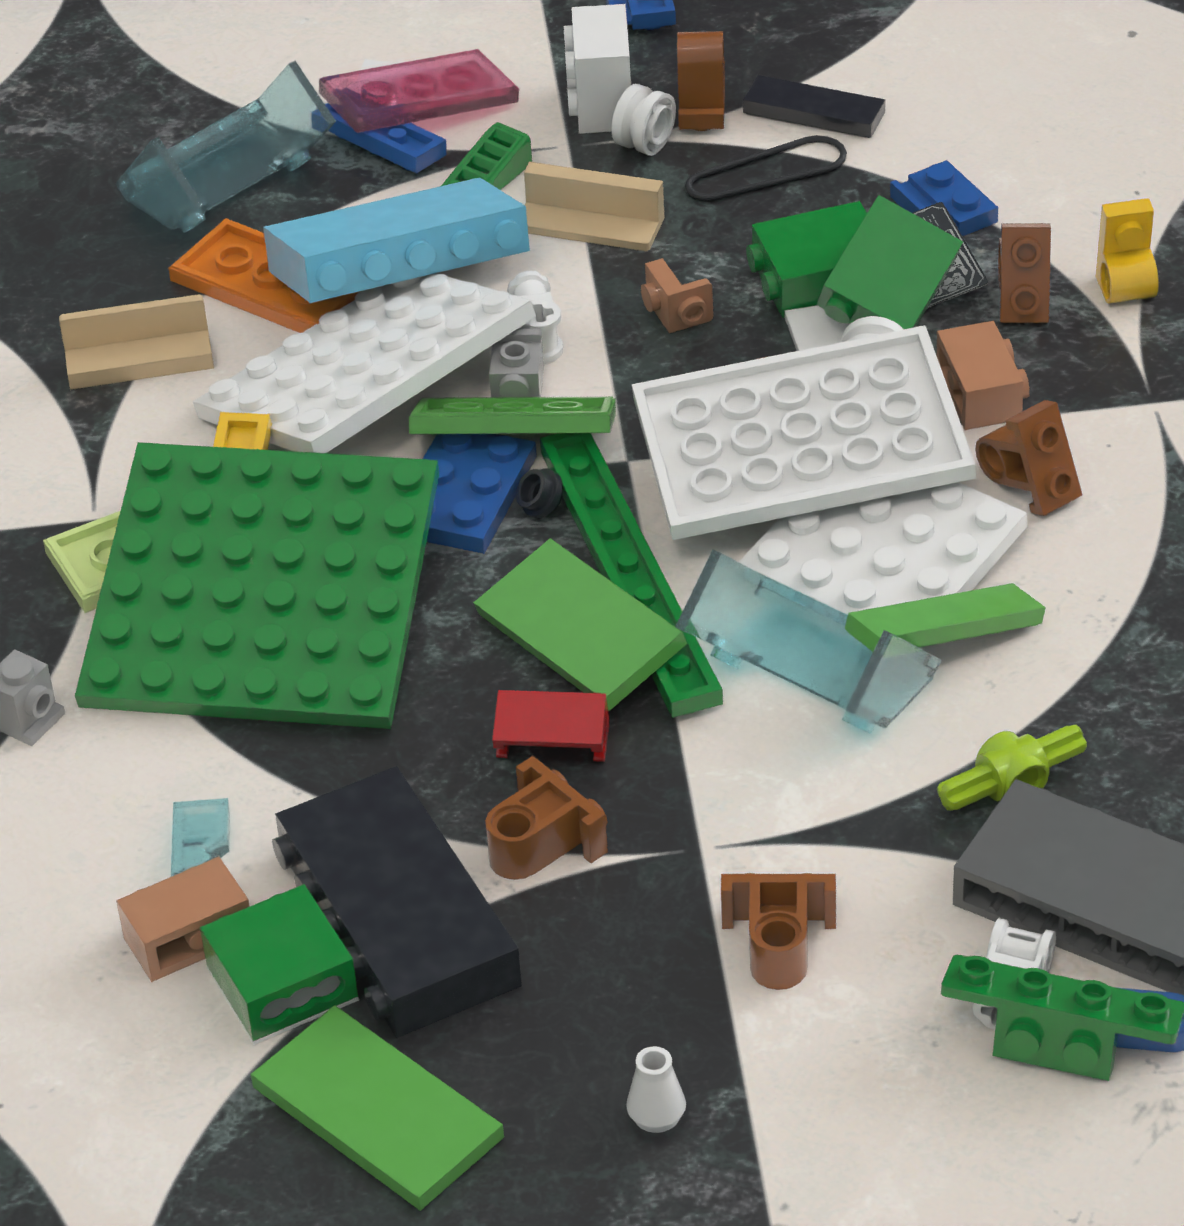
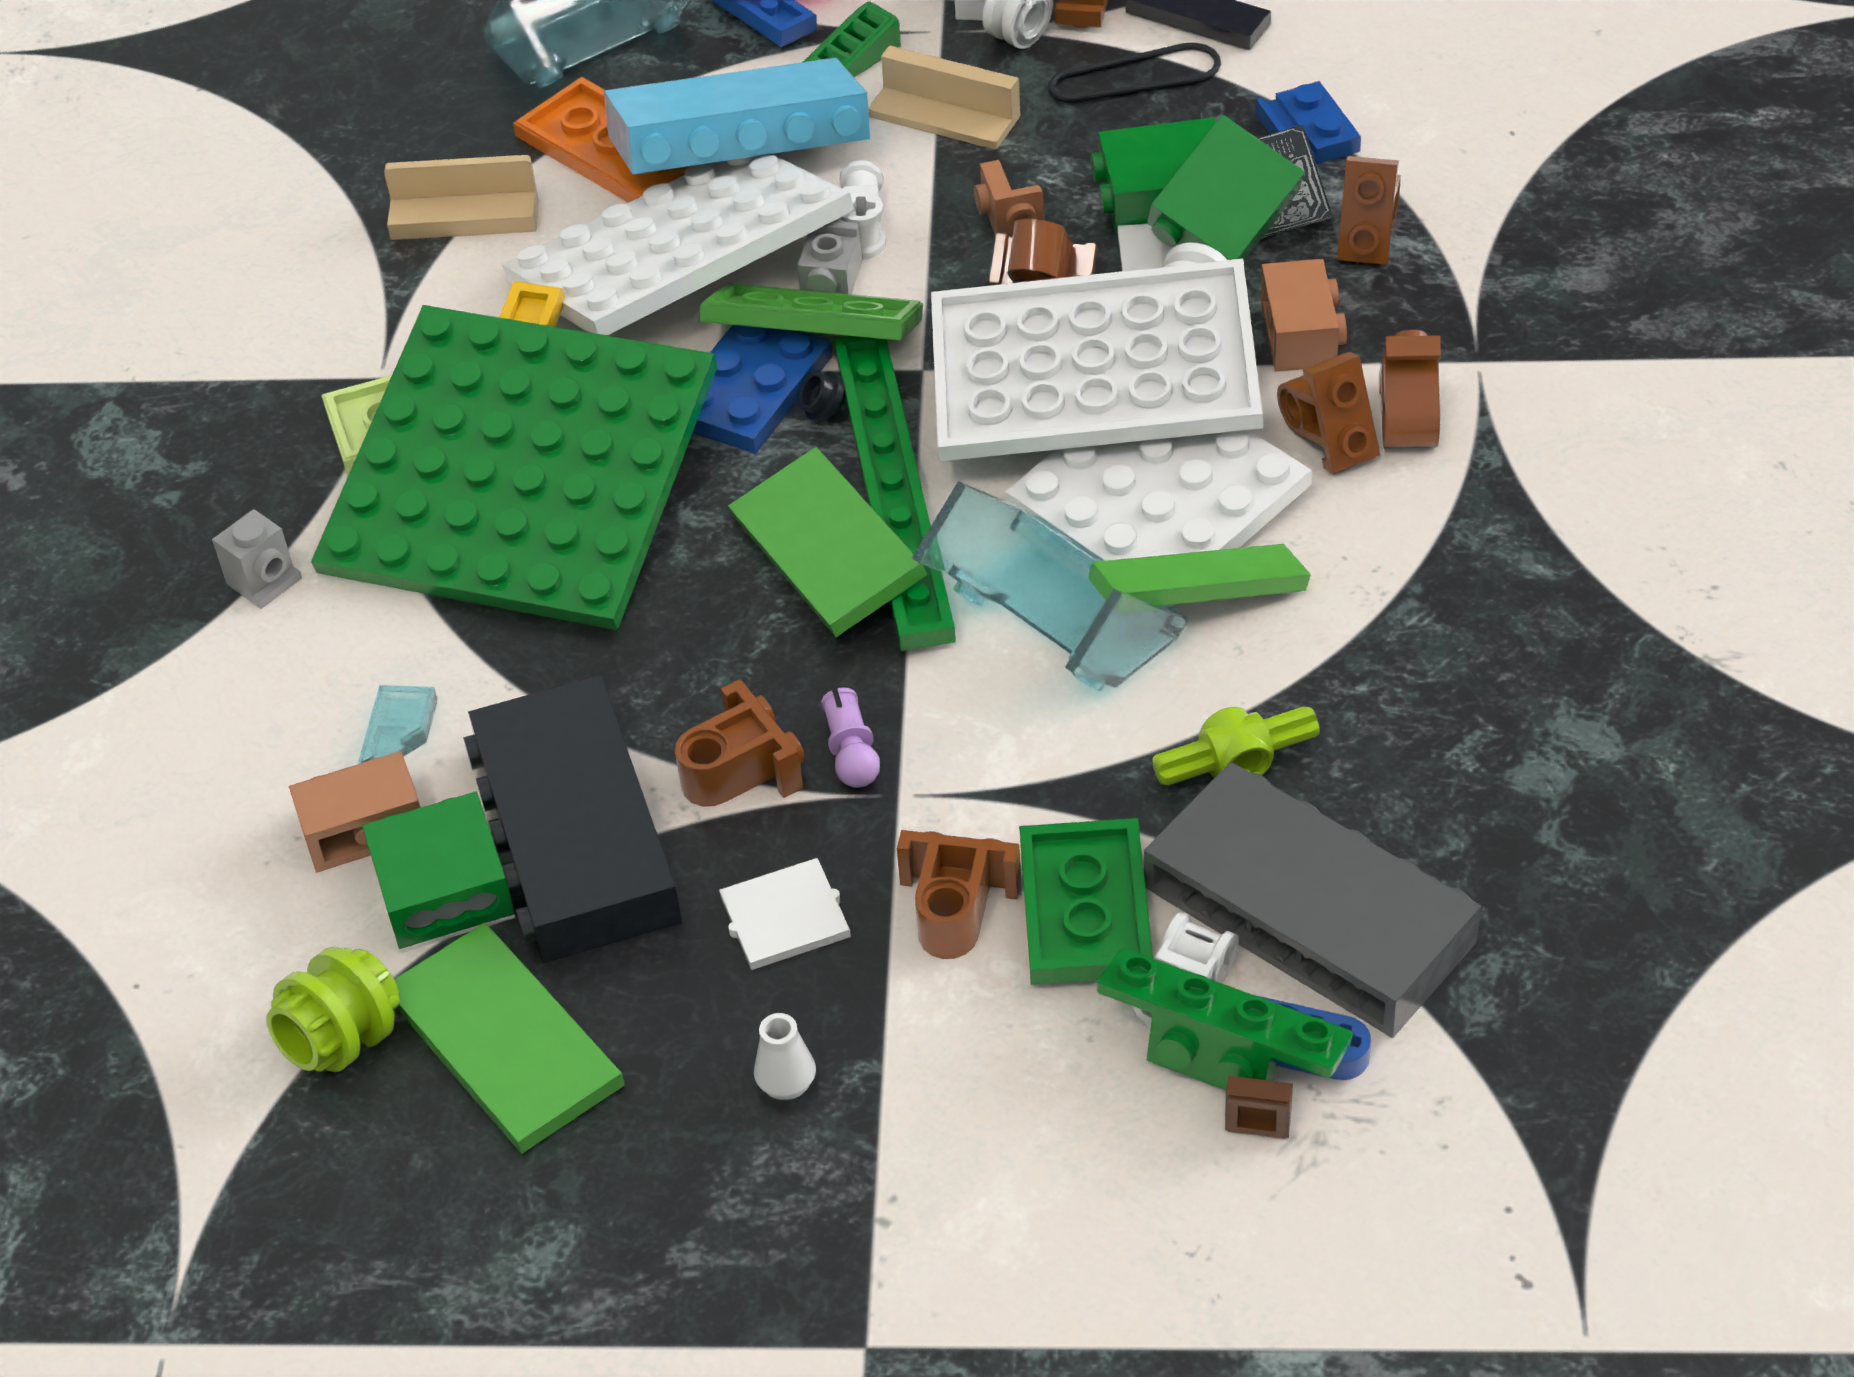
camera: 10 degrees right, 5 degrees up
(211, 1098) = (331, 1008): none -> lime piece
(551, 721) = (773, 643): red hinge -> none
(619, 966) = (784, 913): none -> white piece
(646, 802) = (850, 740): none -> lavender pin
(721, 340) = (1039, 253): none -> dark orange pin
(901, 918) = (1082, 897): none -> green plate
(1102, 431) = (1410, 390): none -> dark orange pin
(1109, 1081) = (1258, 1107): none -> reddish brown tile
(1124, 255) = (1478, 197): yellow plate -> none

